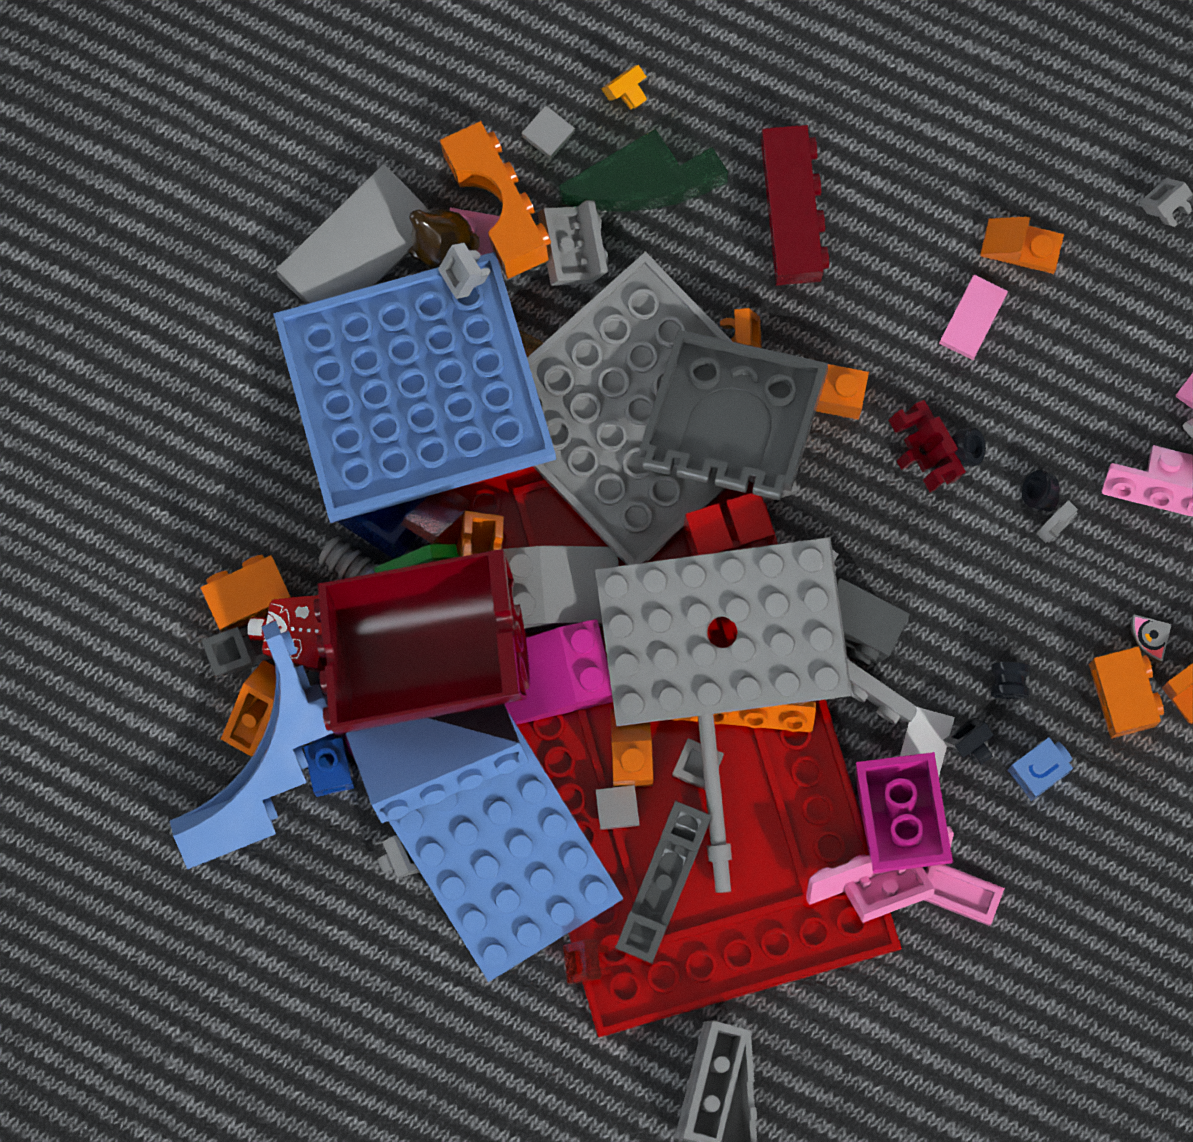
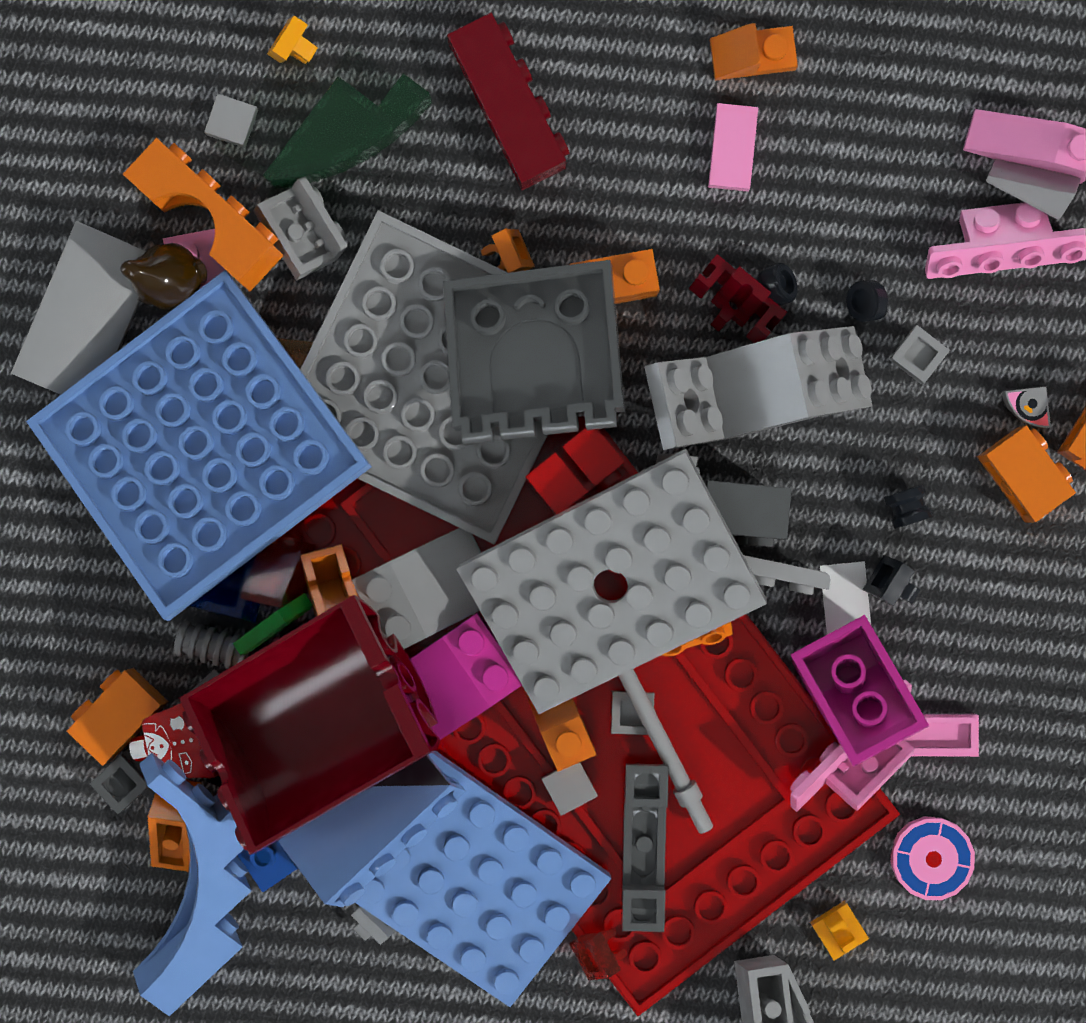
camera: 20 degrees left, 10 degrees up
(462, 271) = (198, 306): light grey tile -> none
(807, 1032) = (839, 930): none -> light orange tile
(915, 1000) = (932, 858): none -> tile
(917, 522) = (758, 386): none -> light grey bracket
(1041, 768) = (972, 582): medium blue brick -> none
(1058, 522) = (899, 319): light grey tile -> none
(1068, 552) = (919, 354): none -> light grey tile

